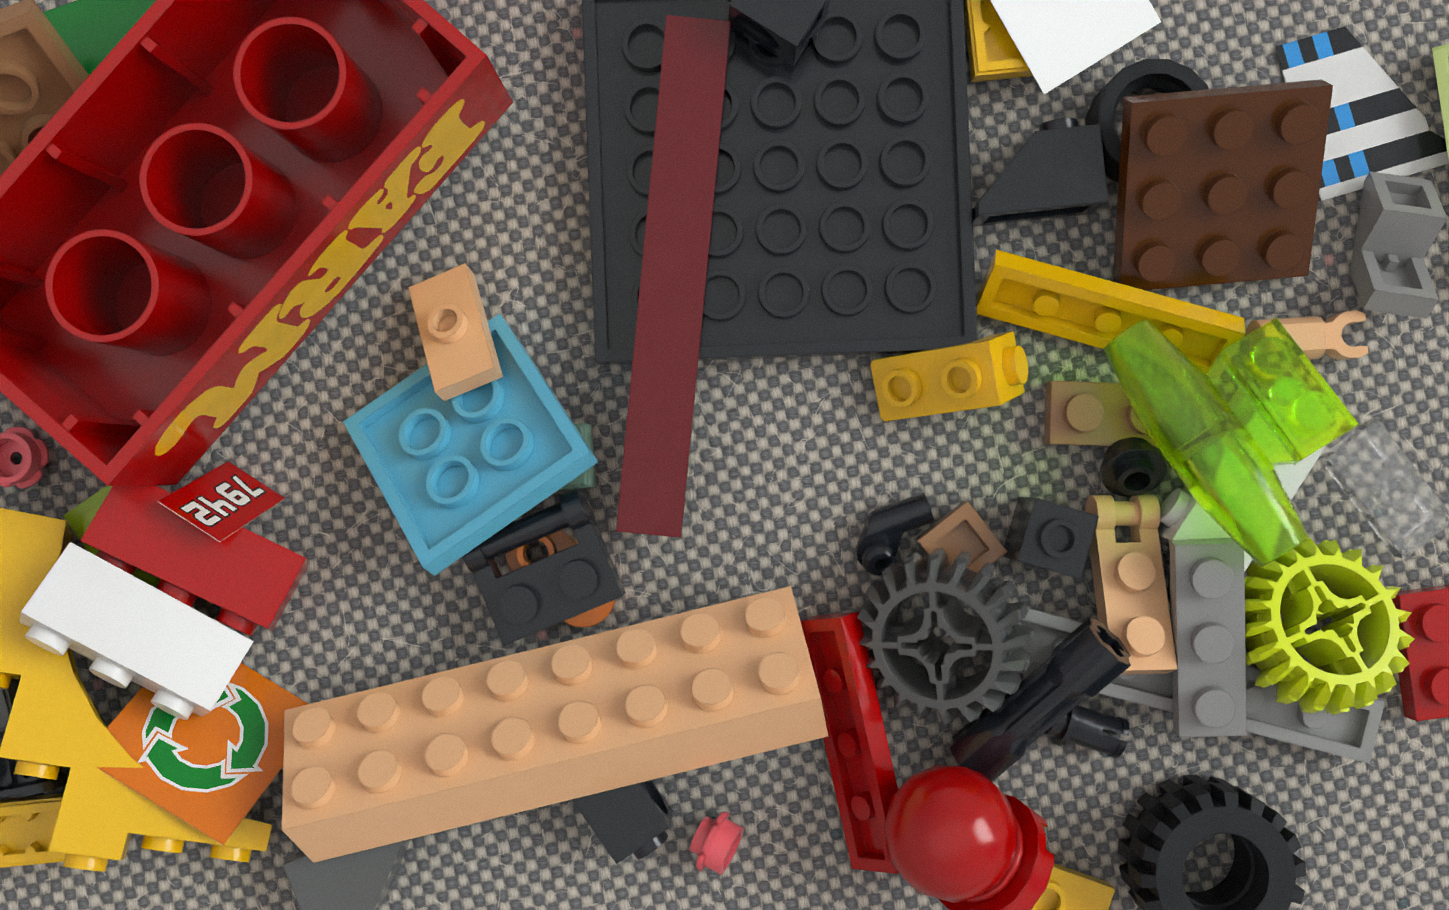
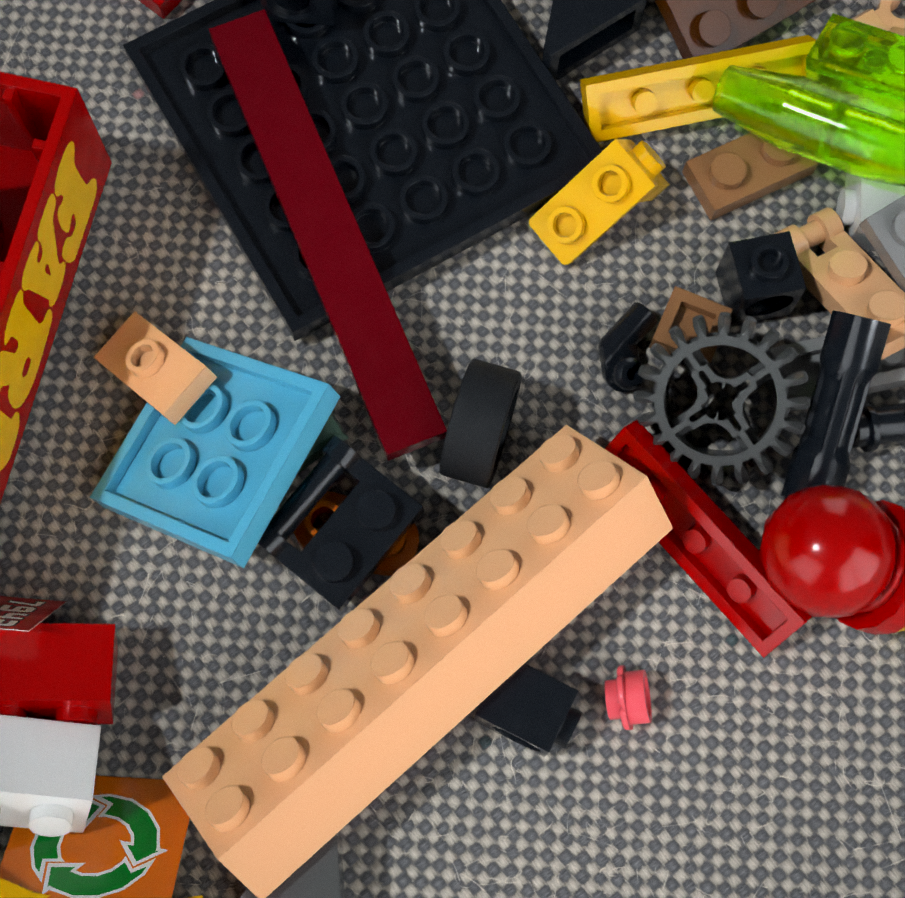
camera: 30 degrees left, 15 degrees down
(716, 544) = (480, 423): none -> black tyre
(1132, 467) = (781, 191): black plate -> none

